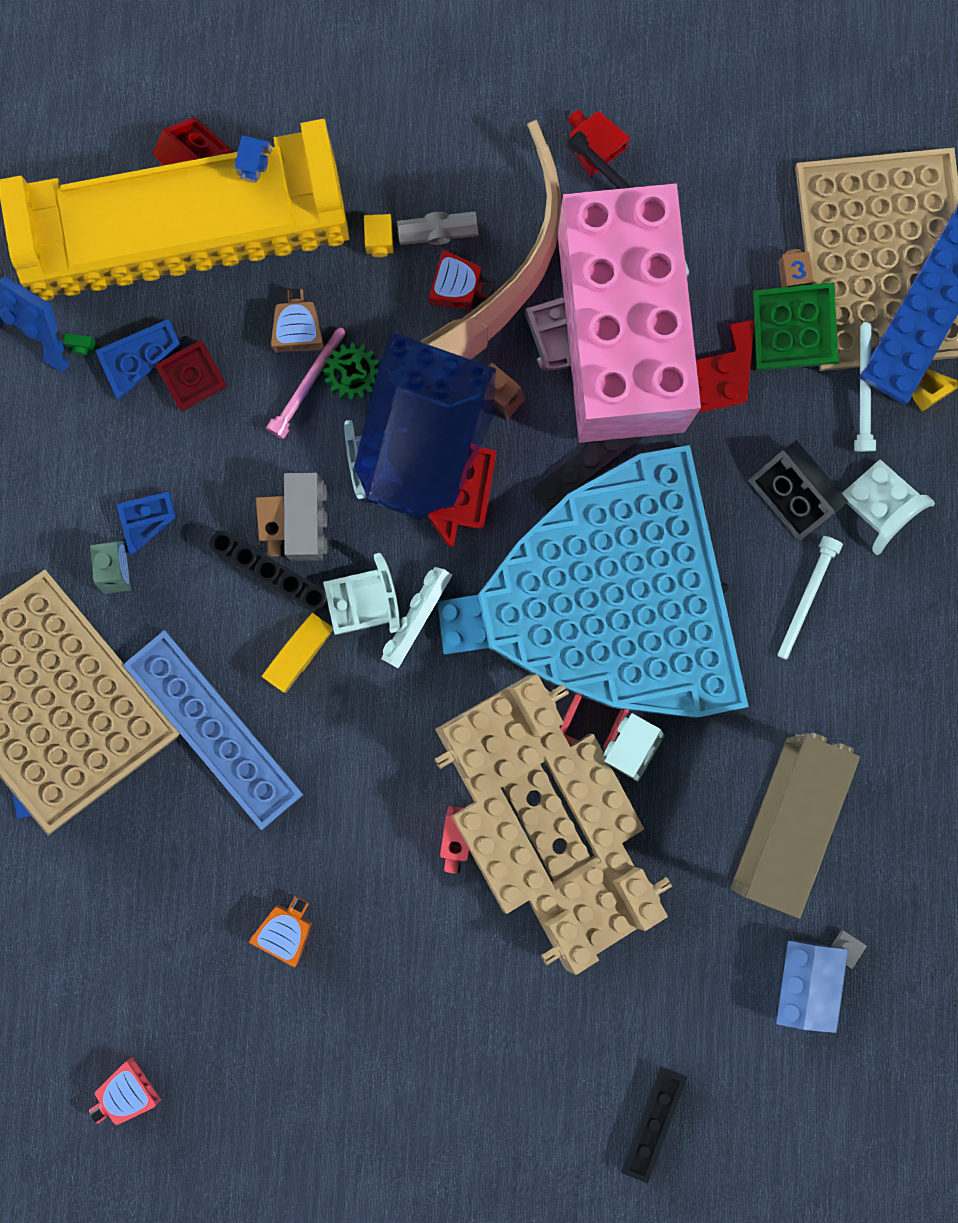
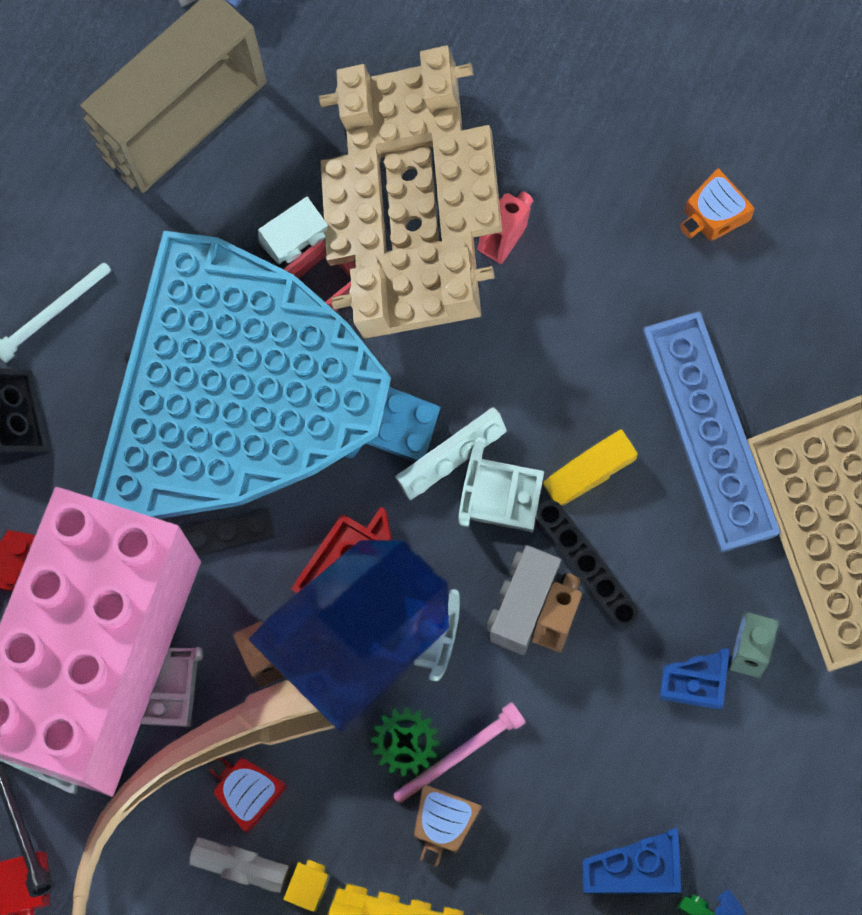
camera: 155 degrees left, 10 degrees down
(191, 375) = (584, 817): dark red plate -> none

